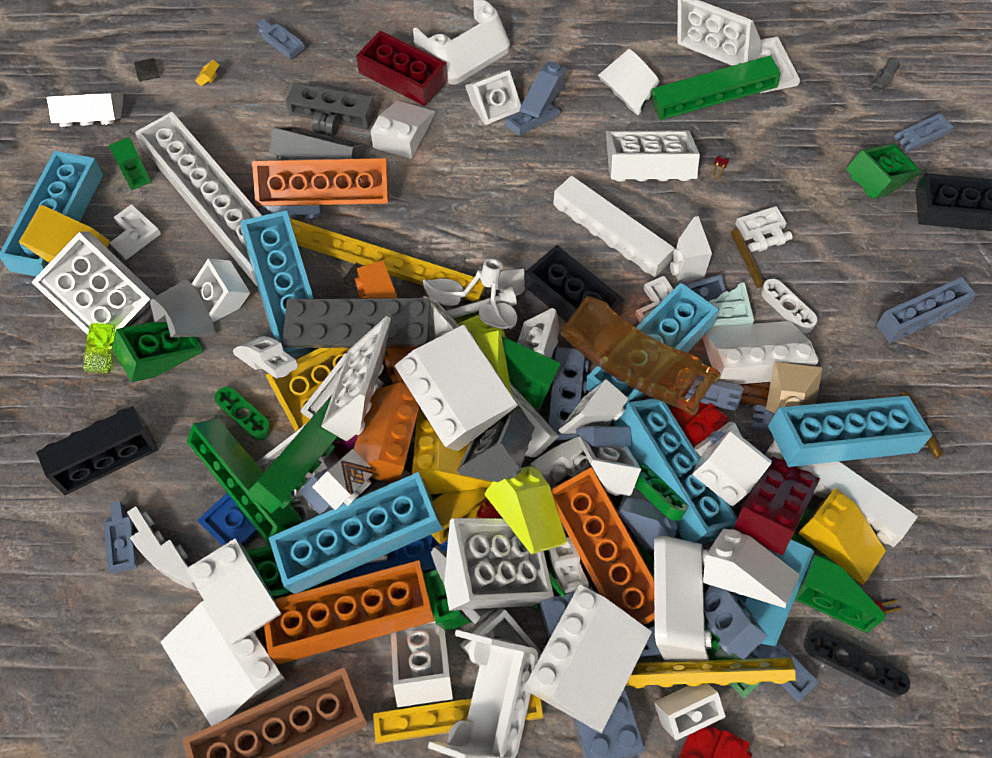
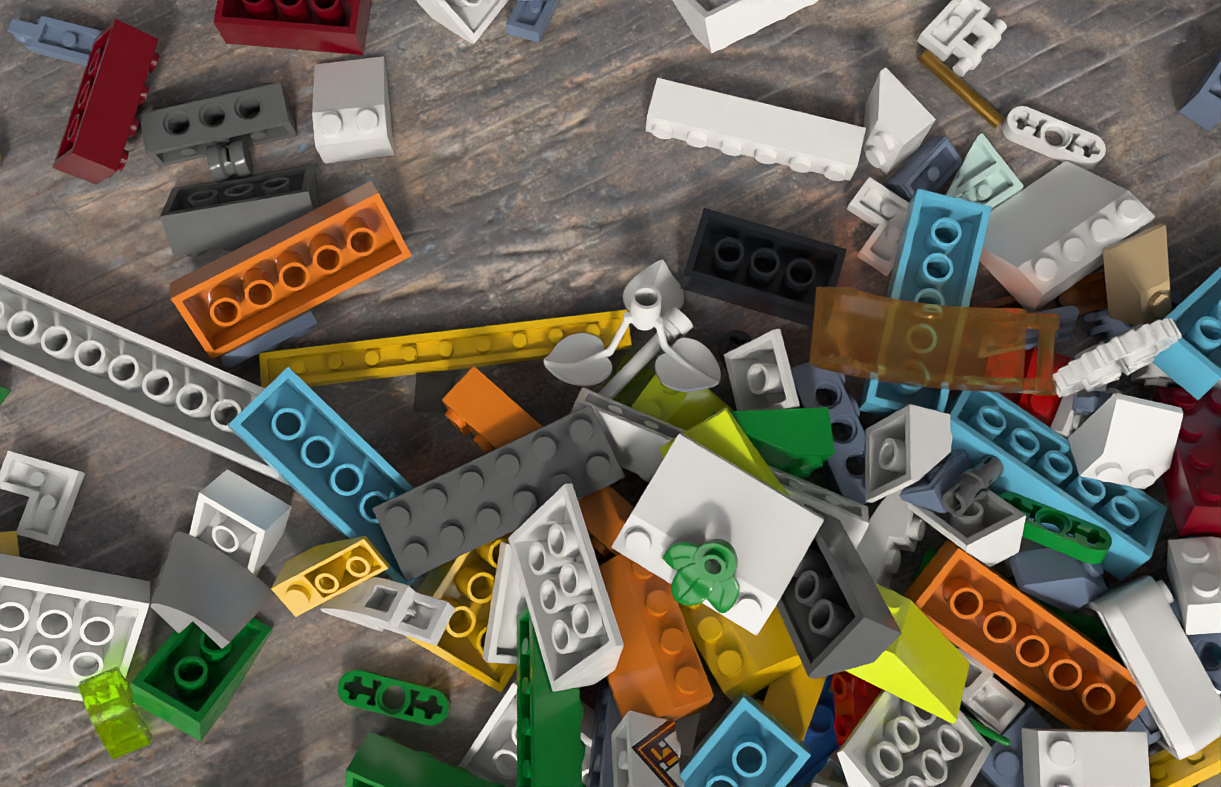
camera: 30 degrees left, 15 degrees up
(246, 326) = (326, 572): none -> yellow slope
(281, 71) = (107, 103): none -> dark red brick
(430, 395) = (701, 578): none -> plate
(620, 441) = (972, 484): none -> dark grey pin
(759, 409) = (1123, 353): none -> white gear

